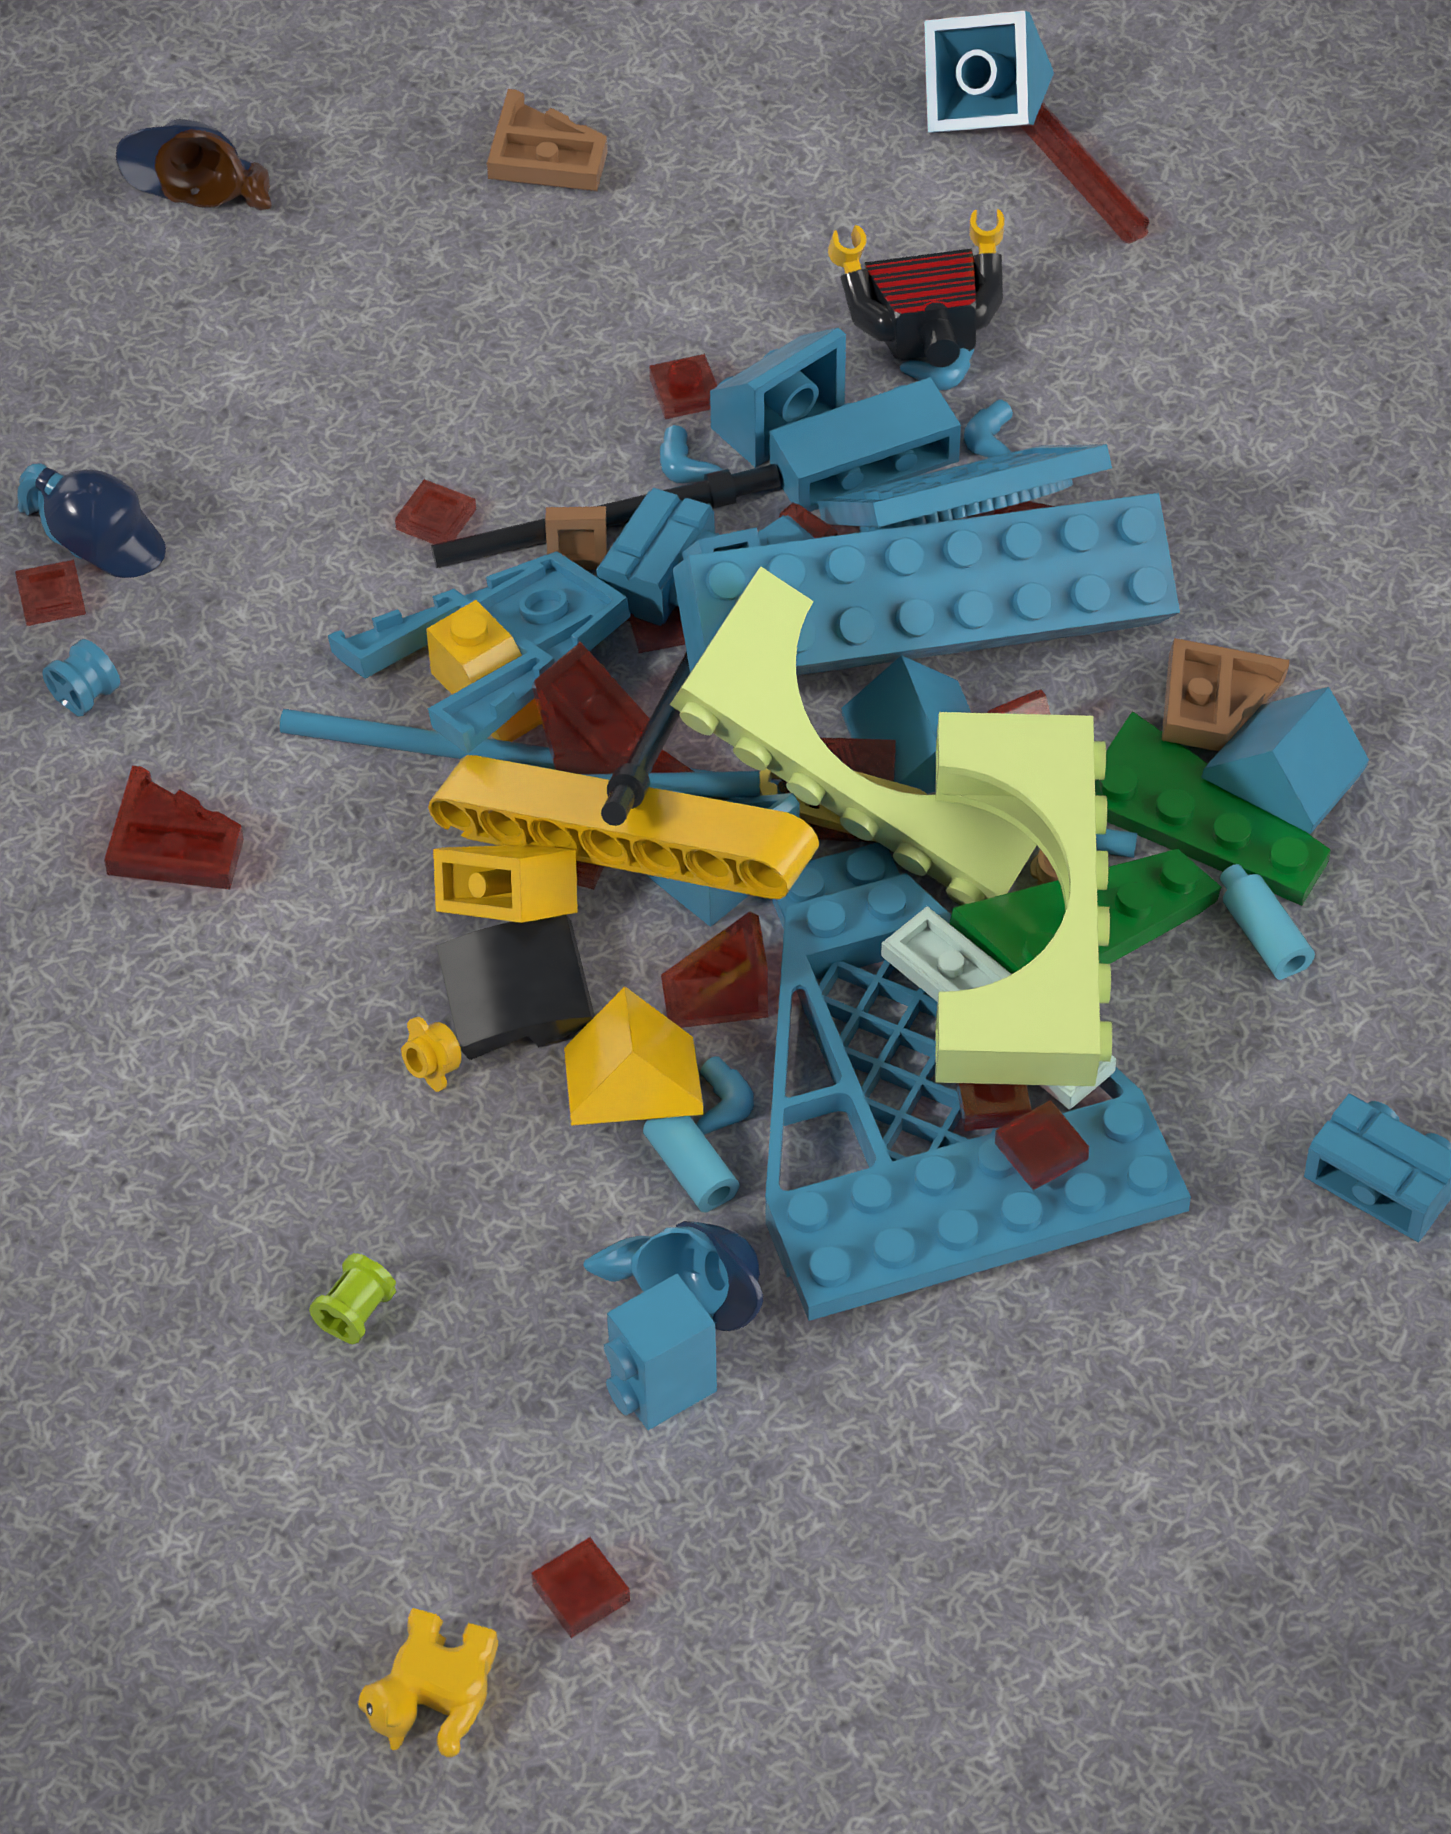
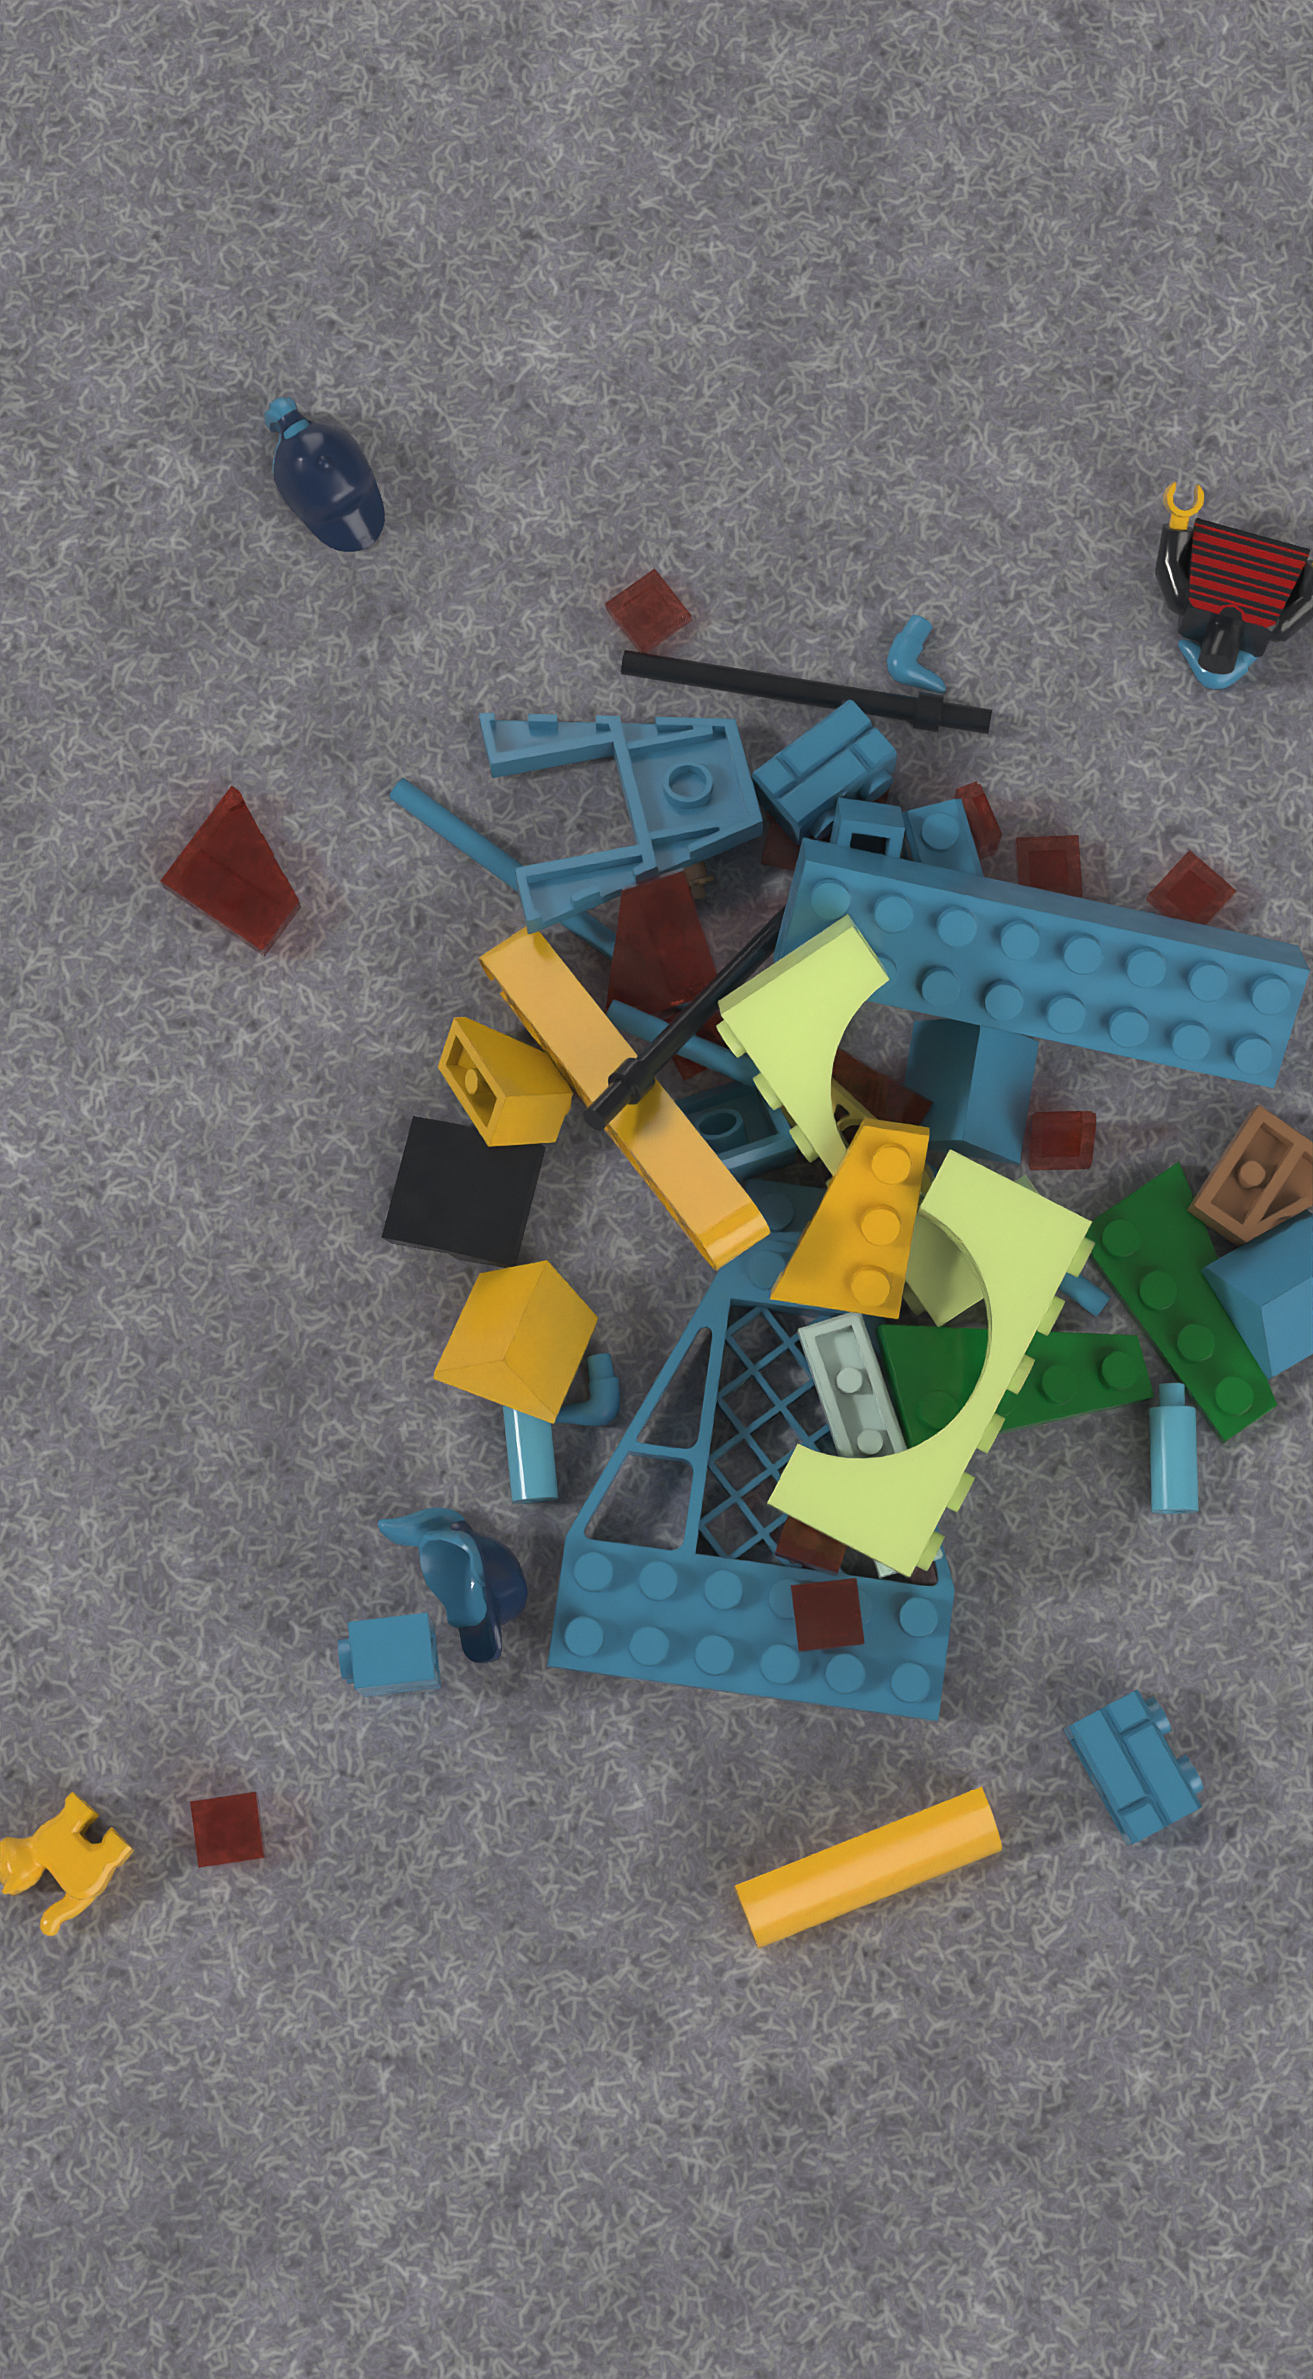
camera: 25 degrees right, 25 degrees up
(50, 592) = (251, 536): clear red tile -> none
(81, 677) = (231, 658): dark azure wheel -> none
(191, 156) = (611, 60): reddish brown hair -> none
(353, 1298) = (170, 1452): lime bush -> none
(431, 1052) = (354, 1229): yellow plate -> none
(470, 647) = (596, 811): yellow slope -> none
(545, 148) = (966, 204): medium nougat wing -> none
(578, 534) = (761, 712): medium nougat plate -> none
(683, 385) = (958, 569): clear red plate -> none
(721, 978) = (643, 1277): clear red slope -> none
(780, 388) = (1034, 635): dark azure slope -> none
(866, 444) = (1088, 730): dark azure brick -> none
(896, 827) = (862, 1231): none -> yellow wing
(966, 488) = (1136, 858): dark azure piece -> none
(983, 426) = (1217, 756): dark azure animal -> none
(1198, 1347) = (869, 1867): none -> yellow brick

